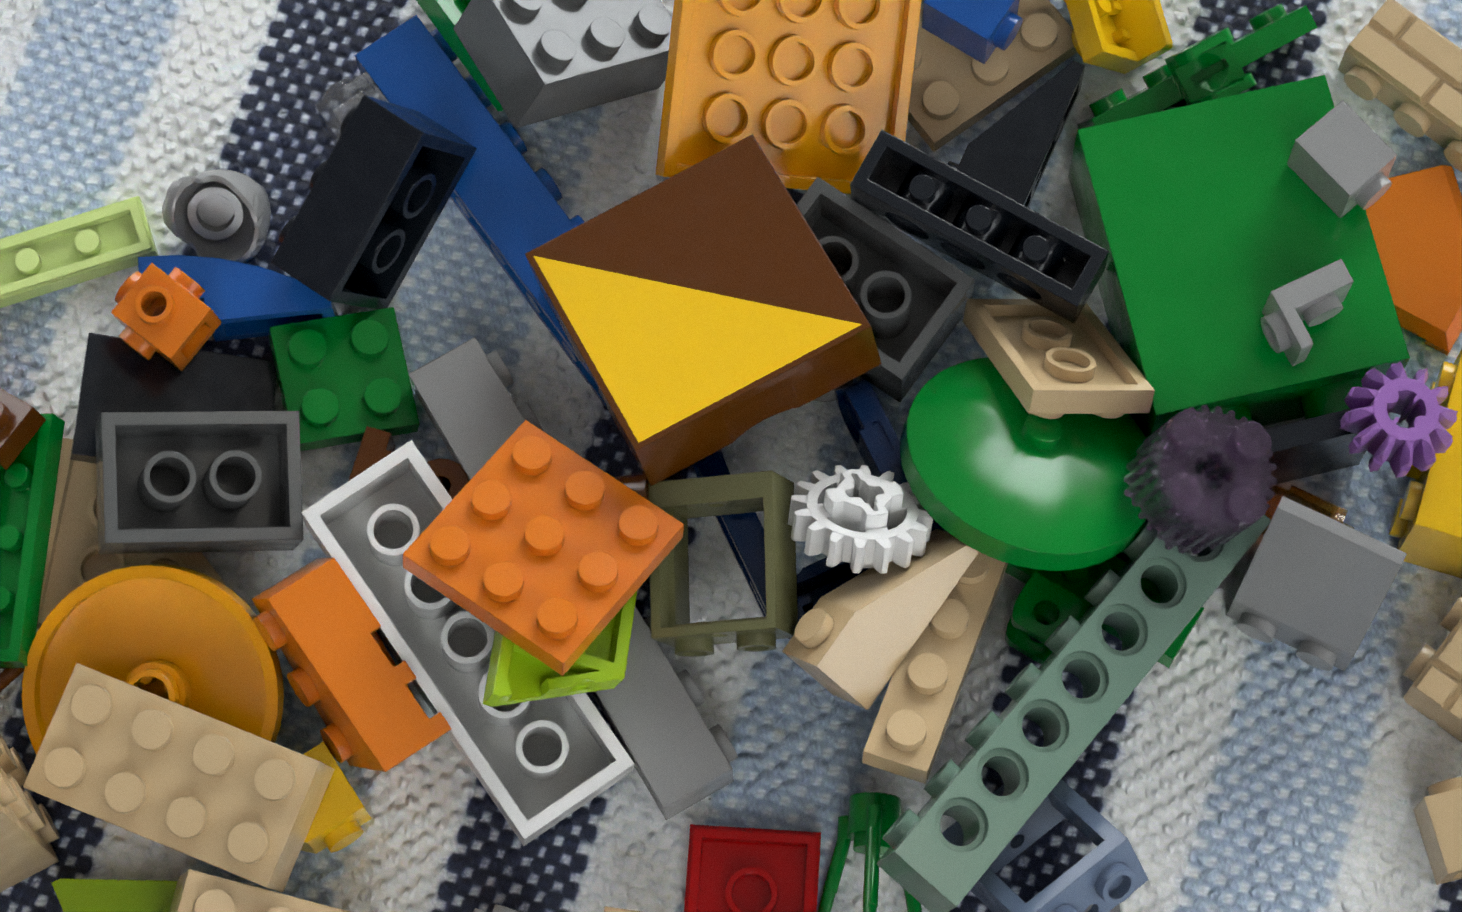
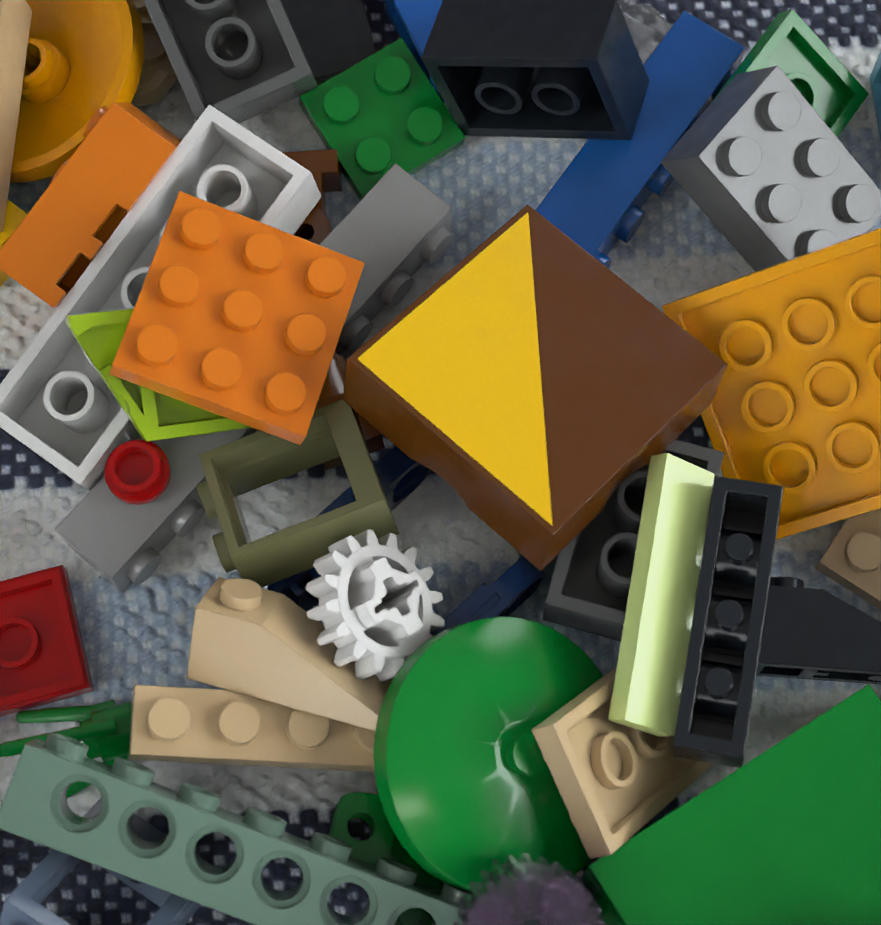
camera: 70 degrees right, 0 degrees up
(640, 707) = (137, 472): none -> red plate
(936, 271) = (662, 596): none -> yellowish green tile

